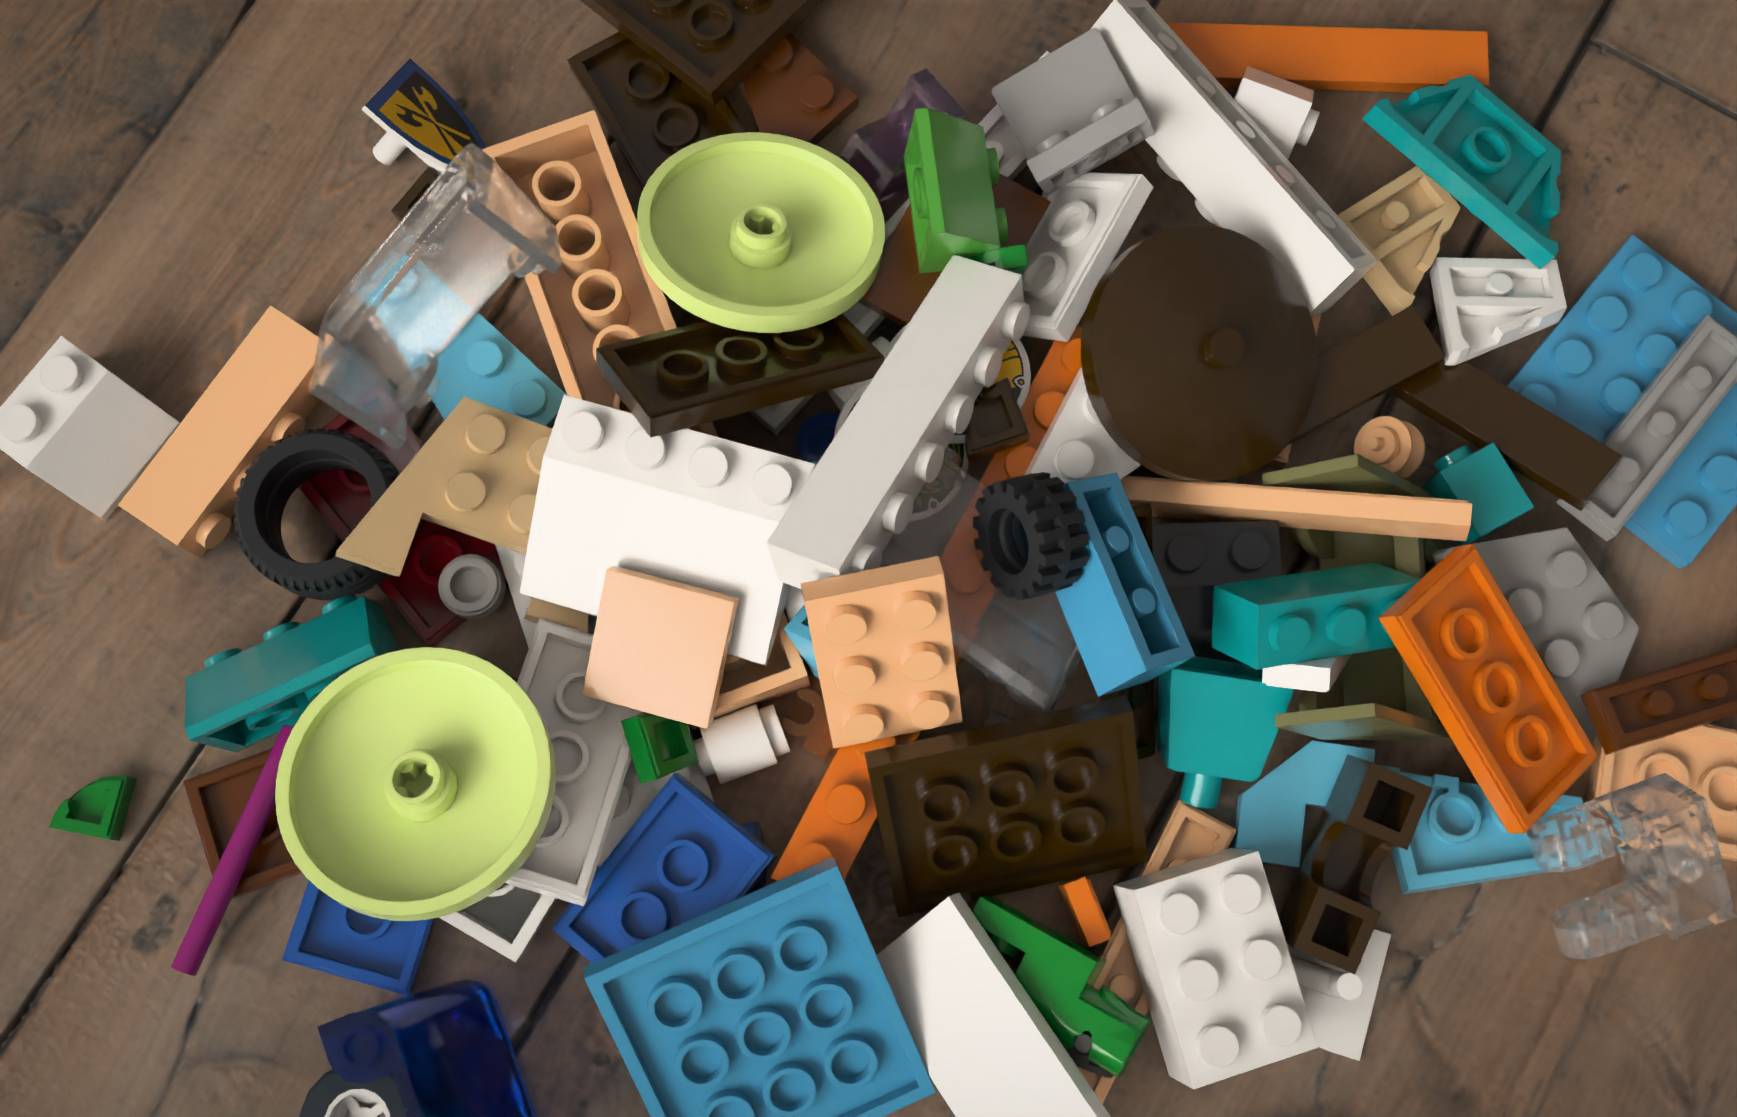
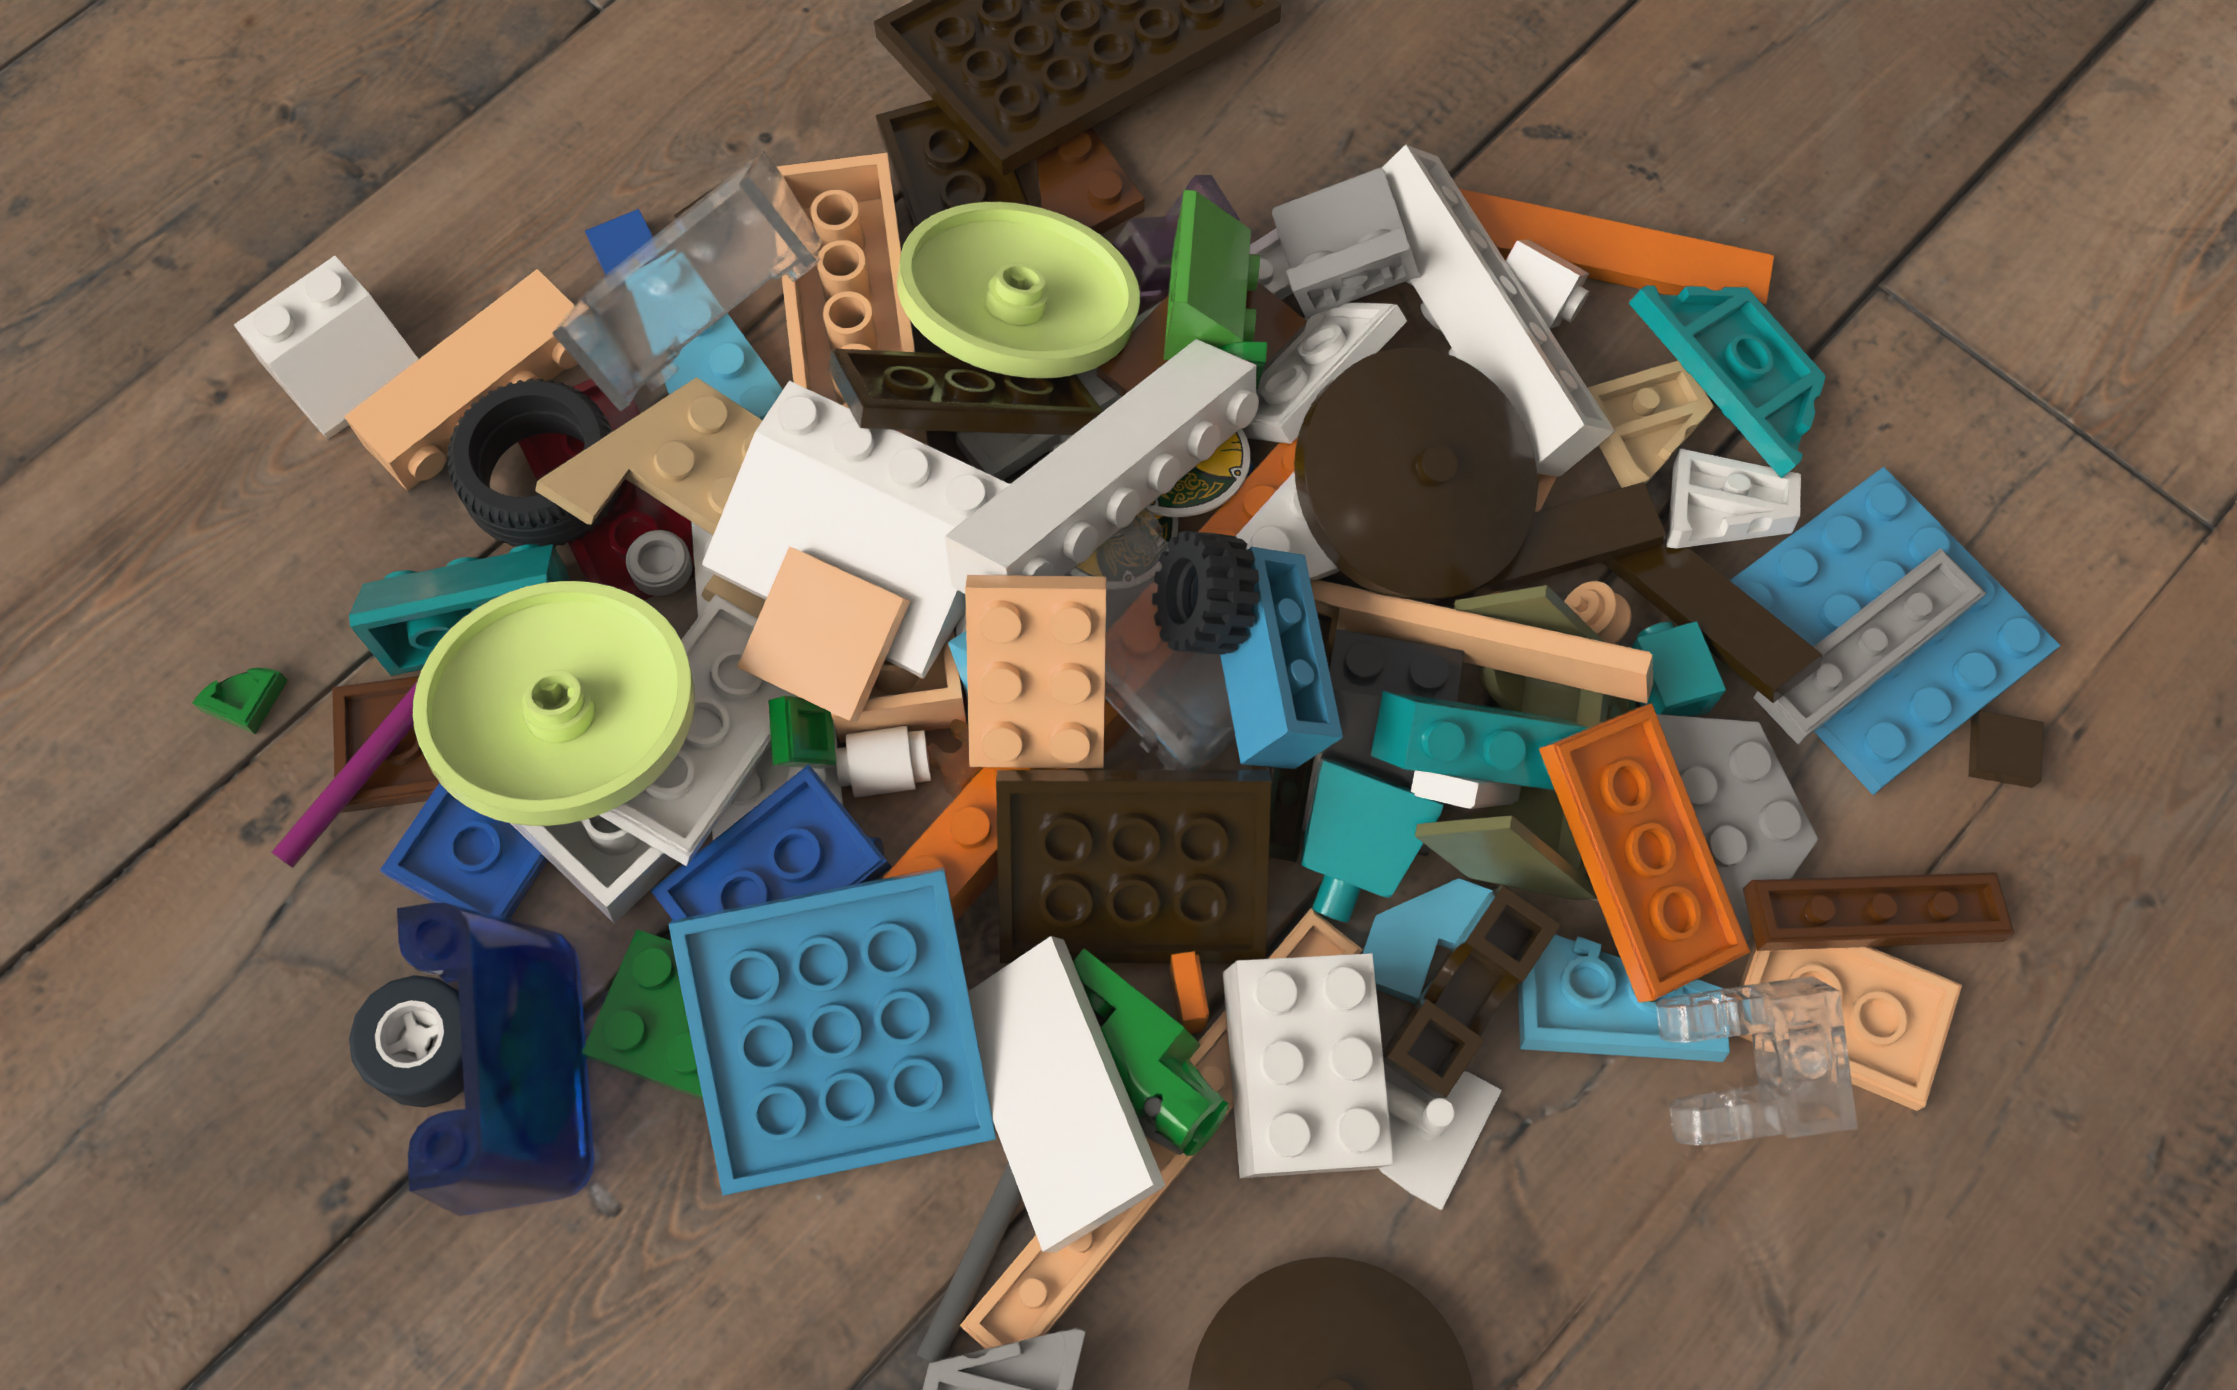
camera: 10 degrees right, 10 degrees down
(343, 249) = (618, 239): none -> blue tile
(419, 117) = (720, 134): shield -> none
(573, 1048) = (645, 1019): none -> green plate
(995, 423) = (1201, 501): dark brown tile -> none

